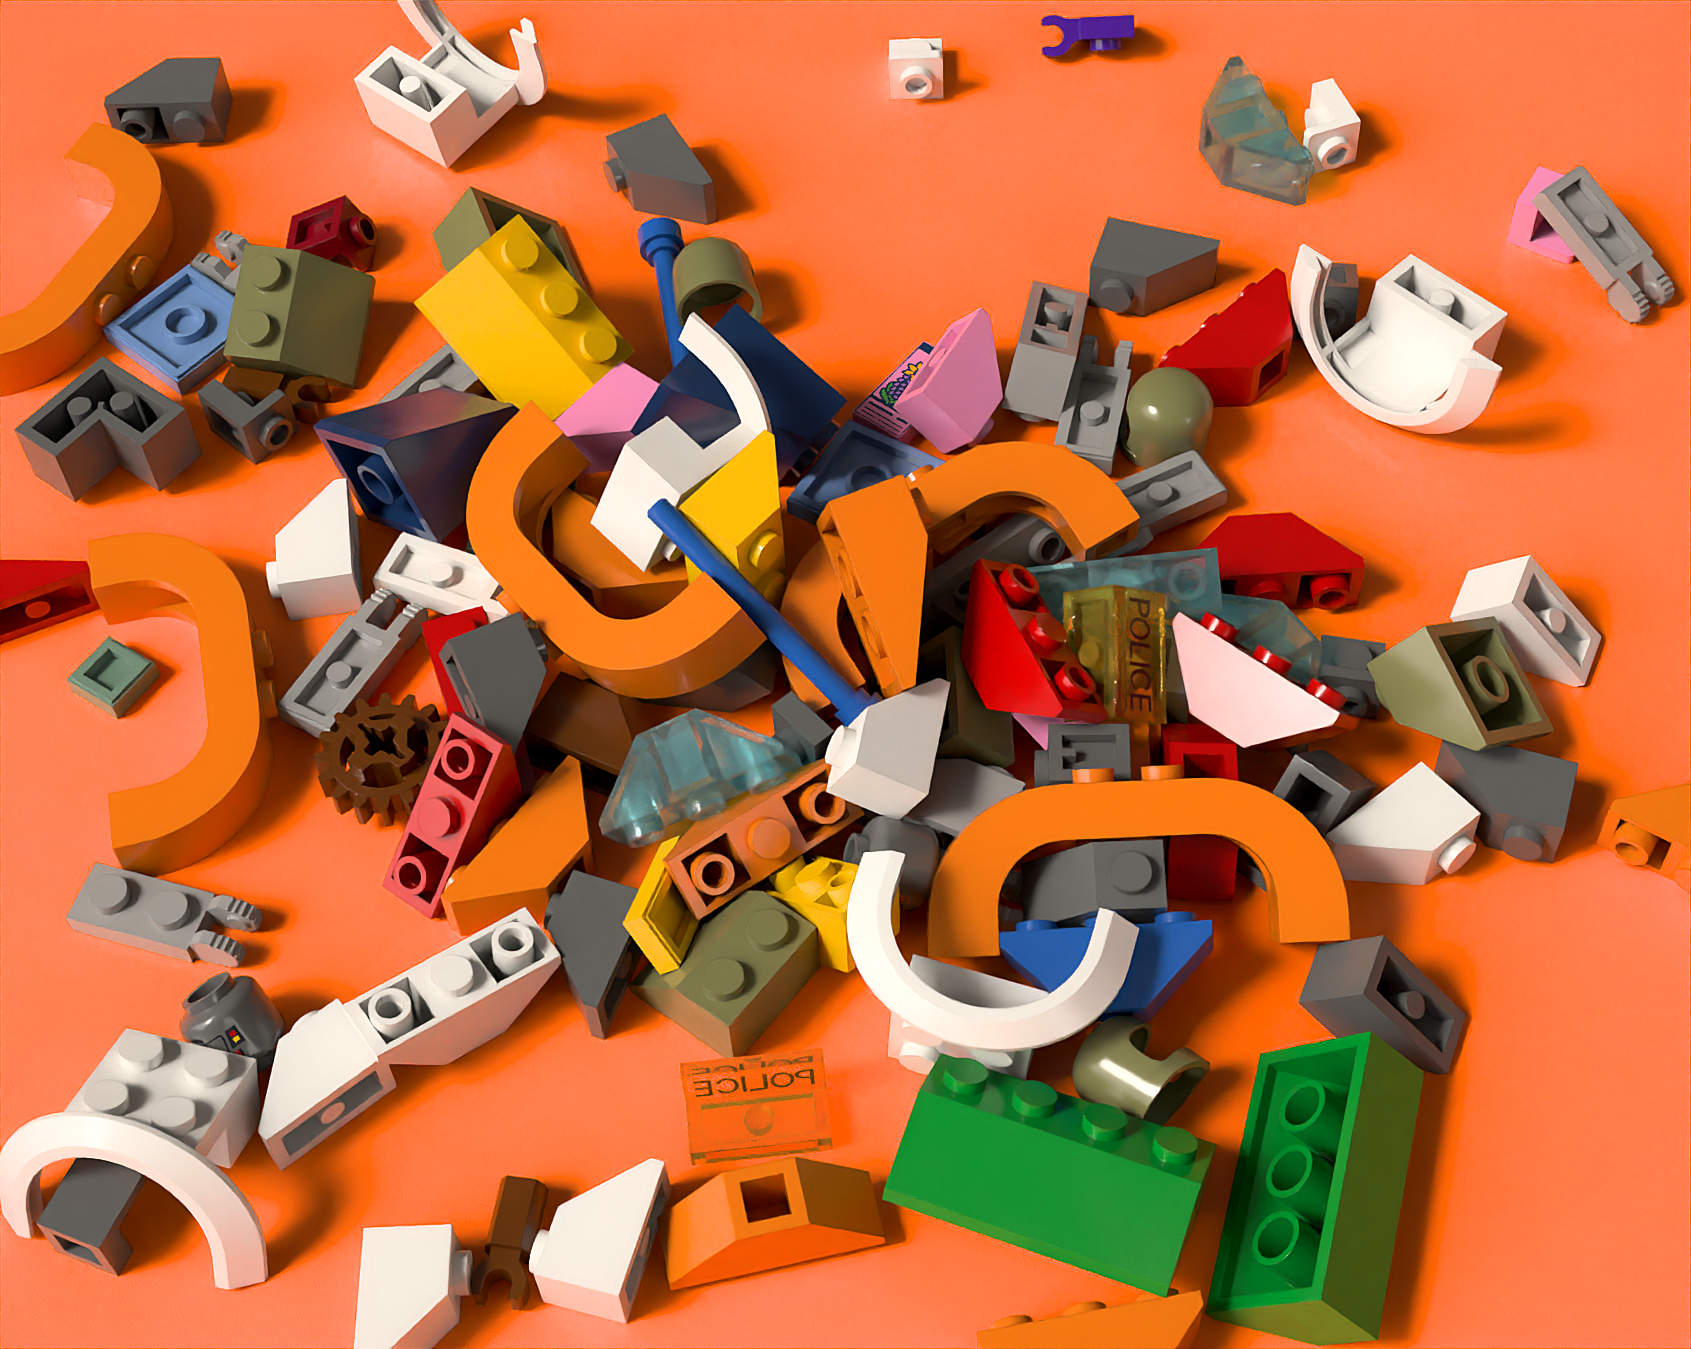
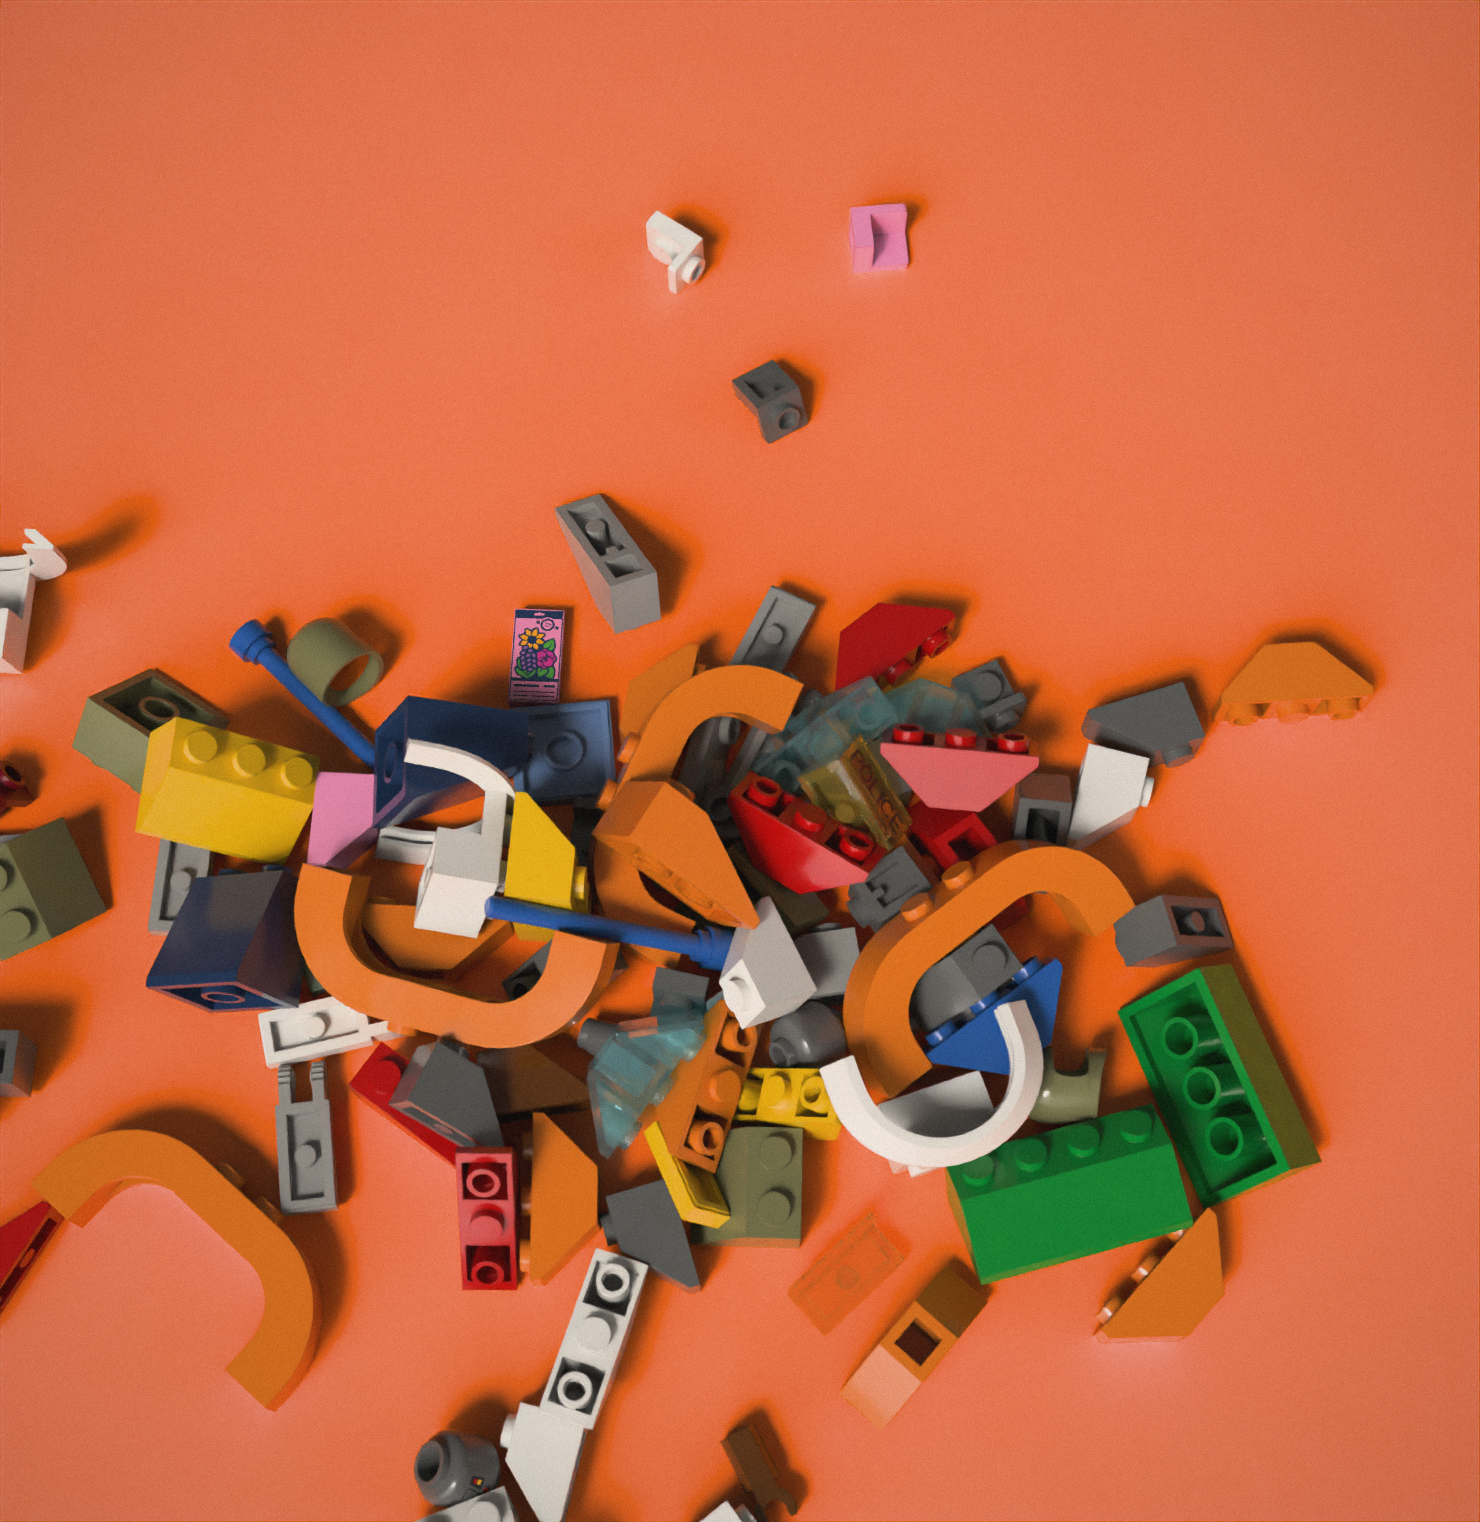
camera: 40 degrees left, 15 degrees up
(113, 677) = (127, 1268): sand green tile -> none
(161, 916) = (322, 1423): light grey hinge -> none
(246, 426) = (49, 1002): bracket -> none
(261, 384) = (52, 959): reddish brown bar -> none
(319, 557) = (211, 1074): white slope -> none
(385, 757) = (396, 1173): reddish brown gear -> none
(602, 1243) = (821, 1437): white slope -> none
(659, 172) = (204, 581): dark grey slope -> none
(915, 68) = (326, 366): bracket -> none
(956, 386) = (573, 636): bright pink slope -> none
(1096, 404) = (683, 602): light grey hinge -> none
(1102, 31) = (443, 255): dark purple plate -> none
(1149, 267) = (630, 450): dark grey slope -> none
(1166, 416) = (739, 571): olive helmet -> none
(1243, 346) = (742, 483): red slope -> none
(1251, 140) = (624, 291): clear light blue slope -> none
(1415, 355) = (861, 417): white piece -> none
(1460, 686) = (1080, 674): olive slope -> none
(1534, 615) = (1073, 588): white slope -> none
(1605, 244) = (931, 246): light grey hinge -> none

